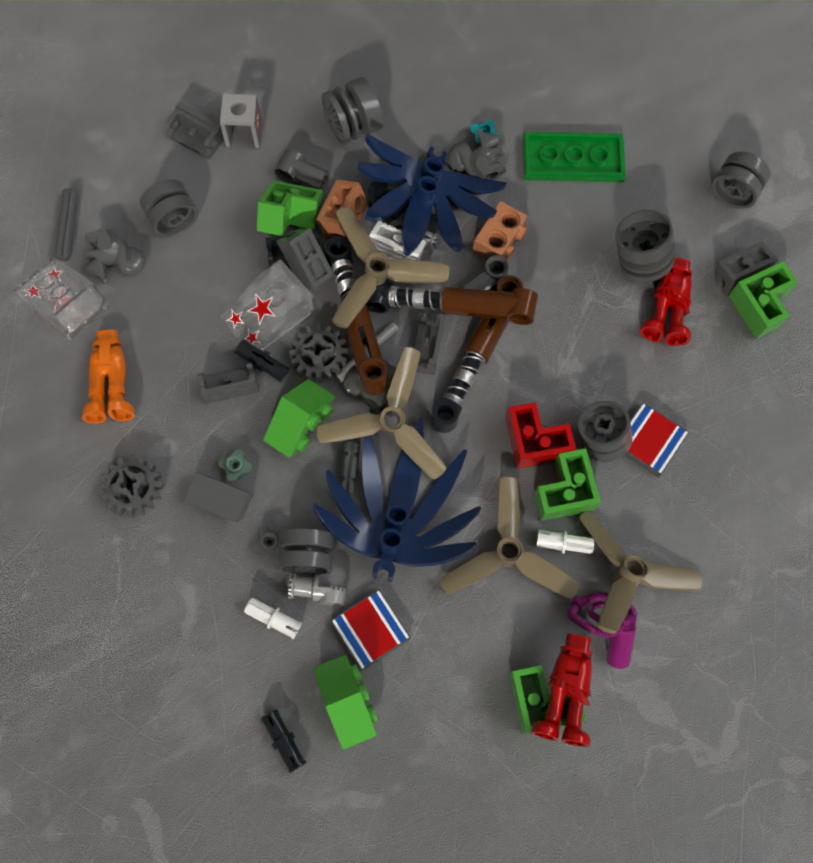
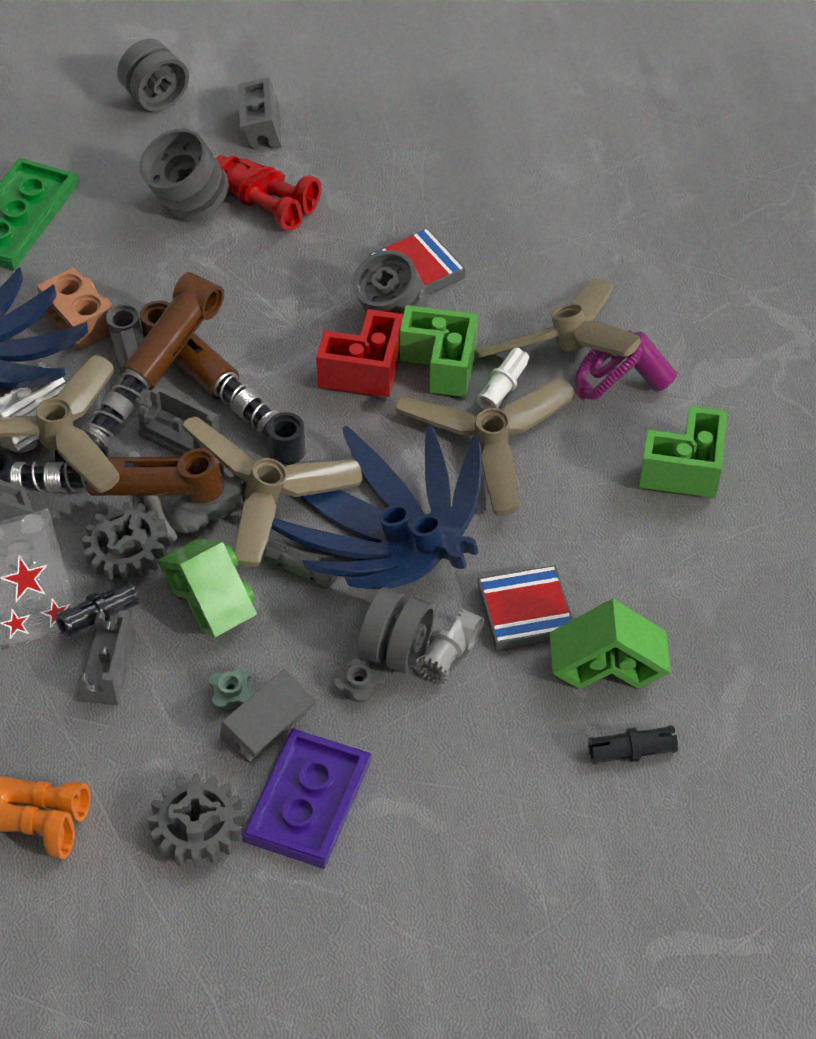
camera: 65 degrees left, 20 degrees down
(175, 545) = (307, 798): none -> dark purple tile
(272, 617) = (465, 705): white axle -> none
(571, 678) = (681, 399): red piece -> none
(759, 298) = (308, 112): bright green brick -> none

